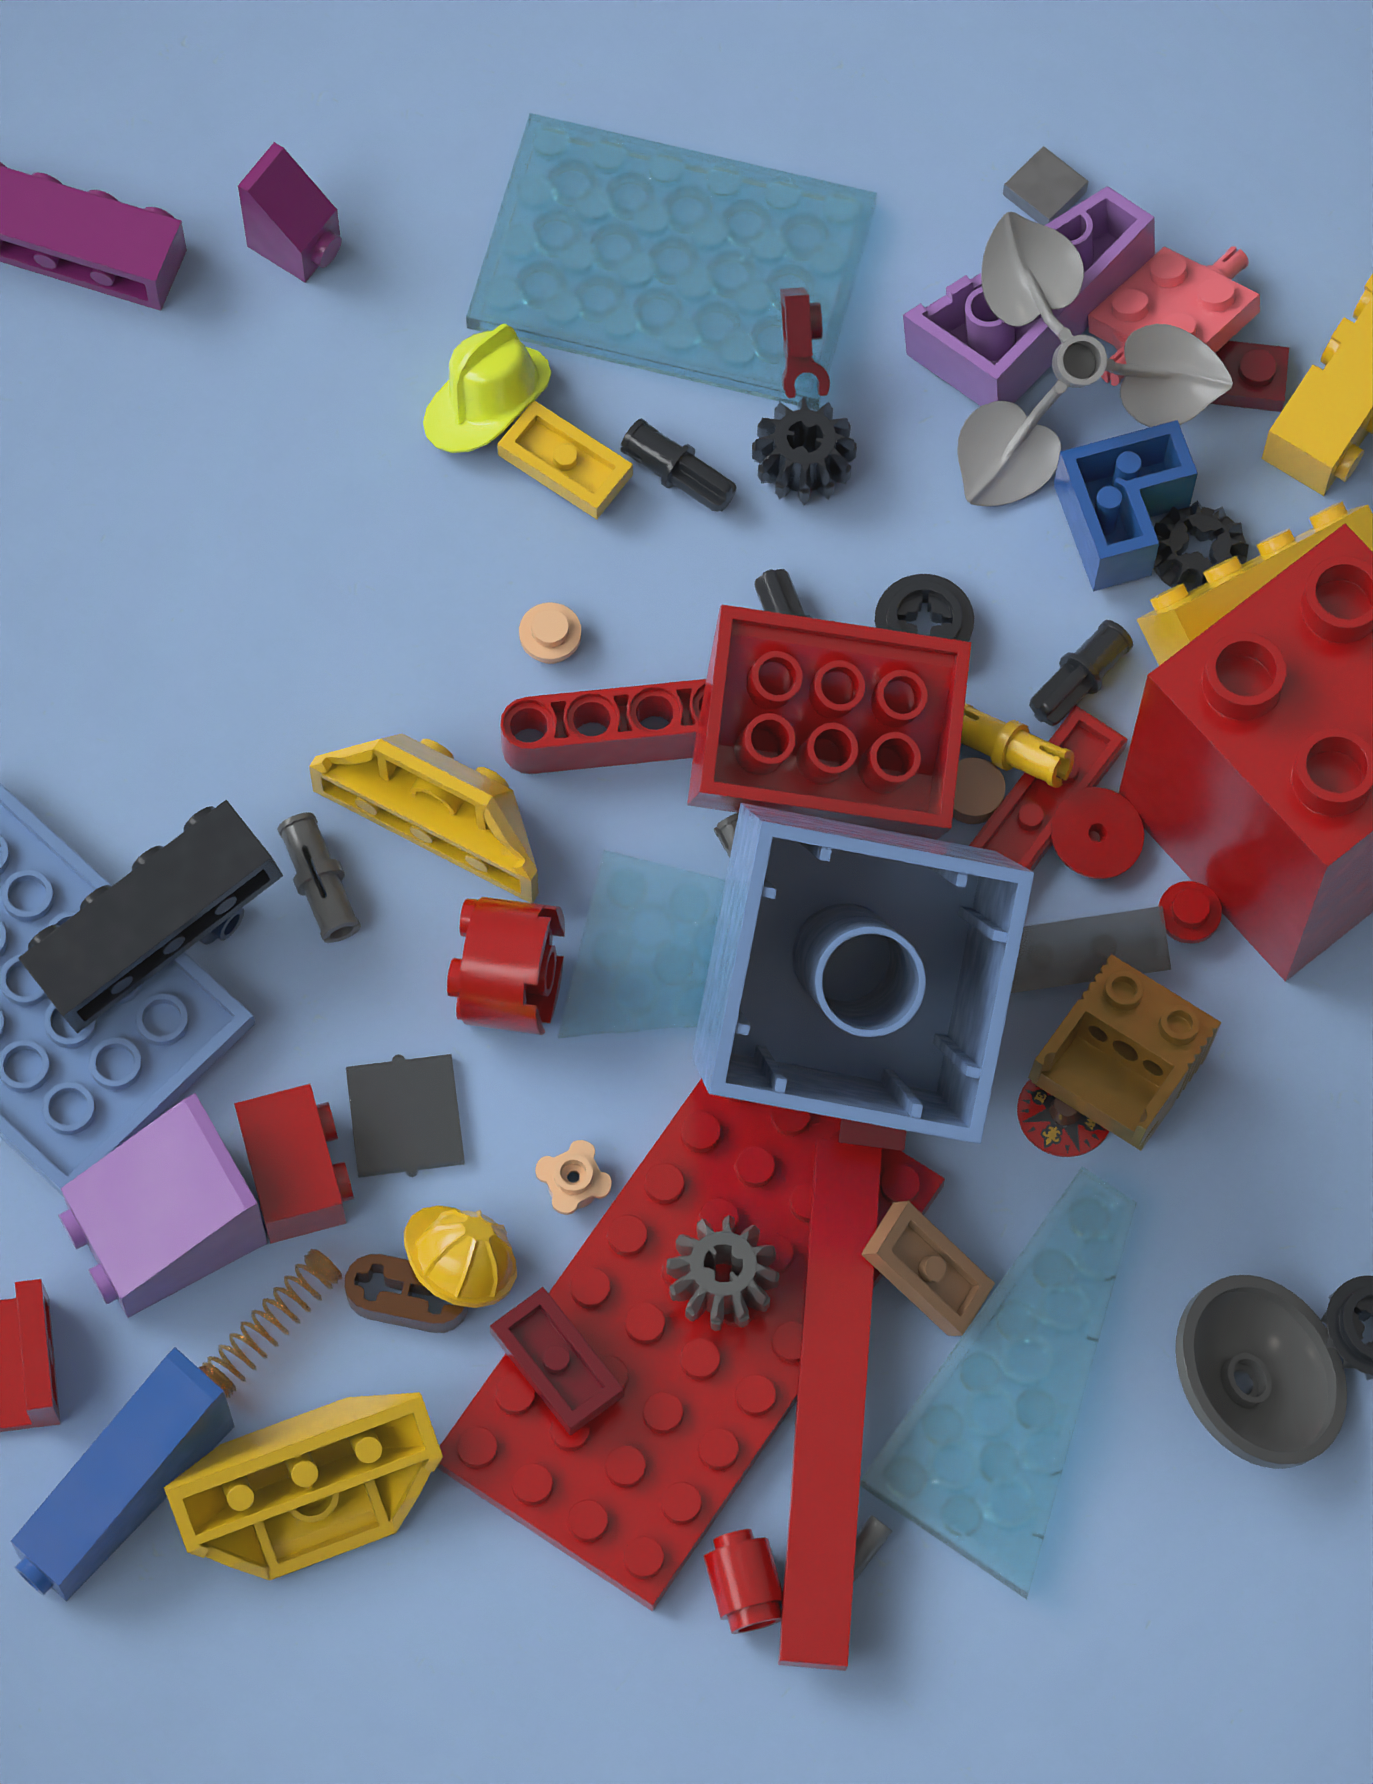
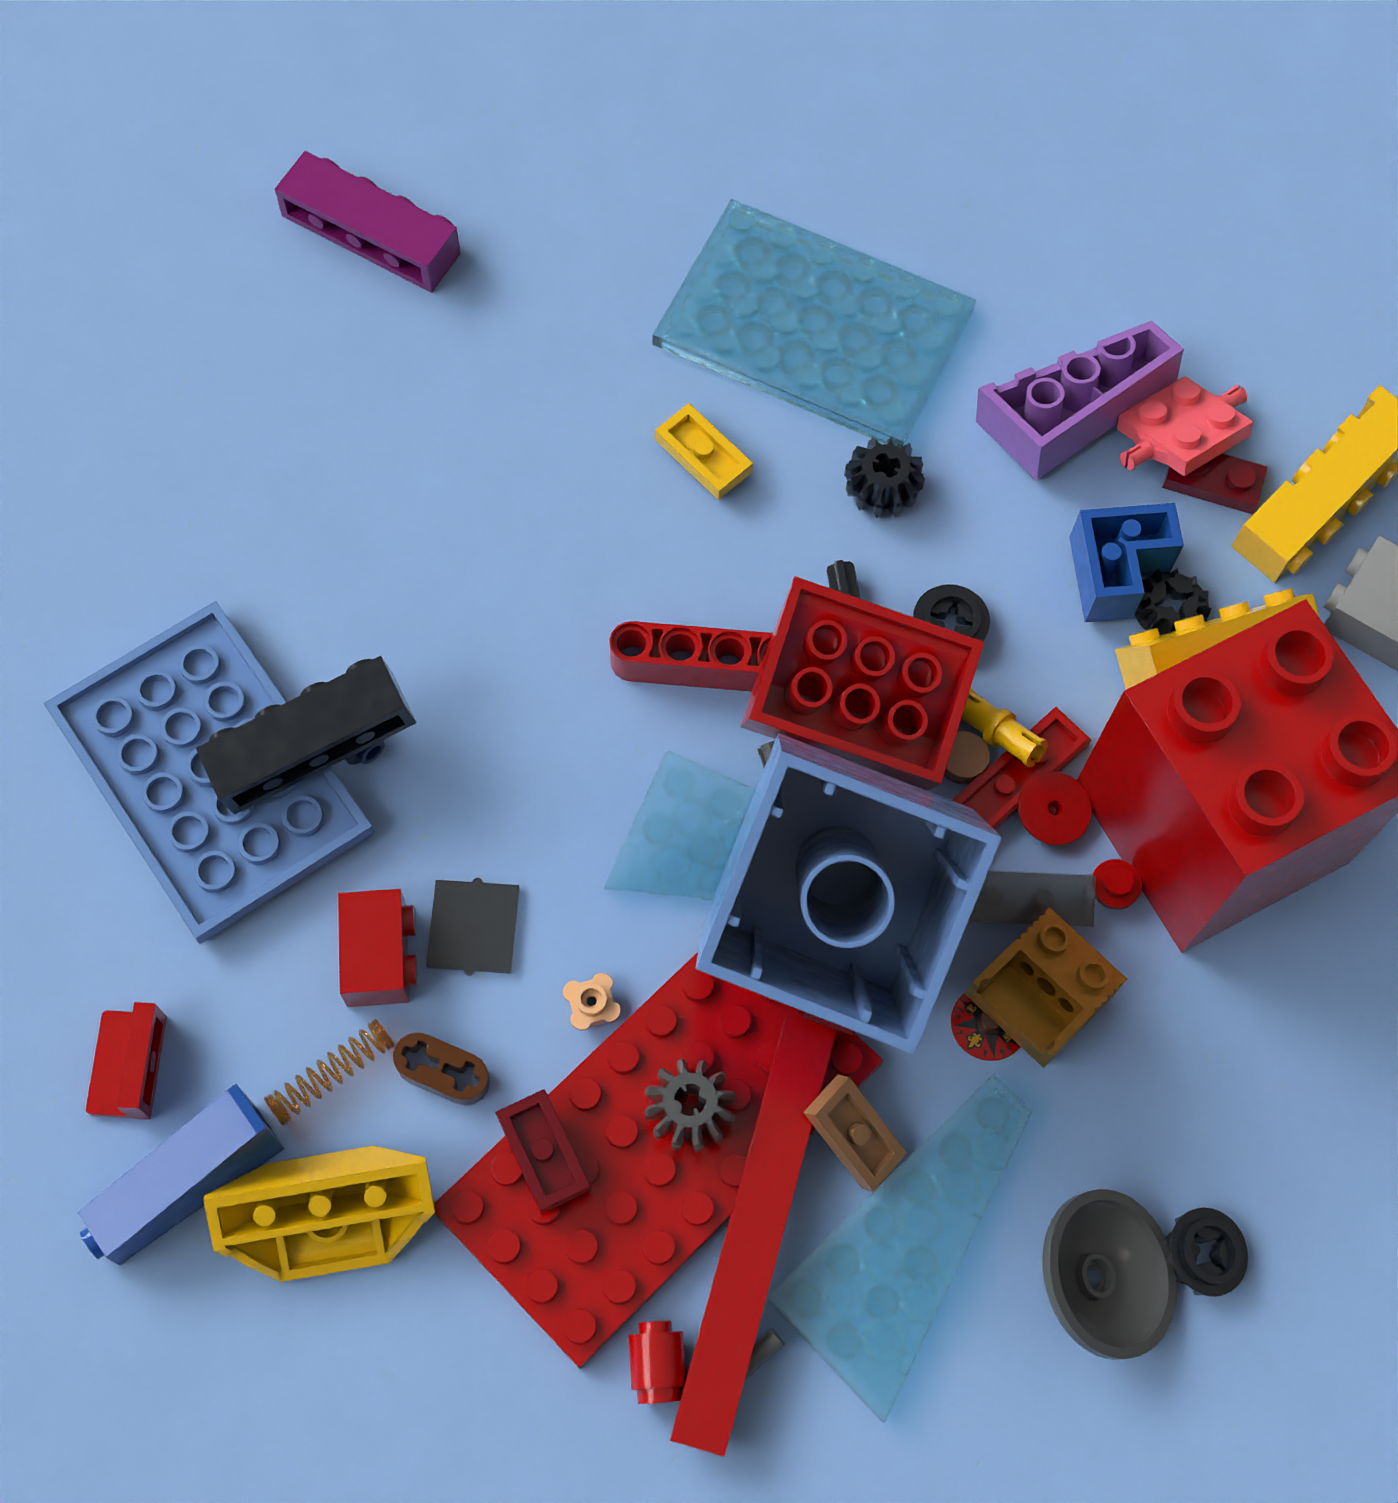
camera: 10 degrees right, 0 degrees up
(162, 1210) = (263, 966): medium lavender slope -> none
(288, 215) = (535, 236): magenta slope -> none
(332, 912) = (448, 729): dark grey pin -> none
(434, 804) = (547, 689): yellow wedge -> none
(460, 1255) = (488, 1048): yellow piece -> none
(486, 390) = (657, 387): neon yellow piece -> none
(507, 965) = (574, 824): red brick -> none
(550, 632) = (664, 577): light nougat plate -> none
(677, 466) = (787, 471): black axle -> none
(799, 327) = (899, 381): dark red plate -> none
(1045, 187) = (1102, 317): flat silver tile -> none
(1080, 673) = (1064, 682): black axle -> none
(1165, 372) = (1171, 469): light grey plant -> none

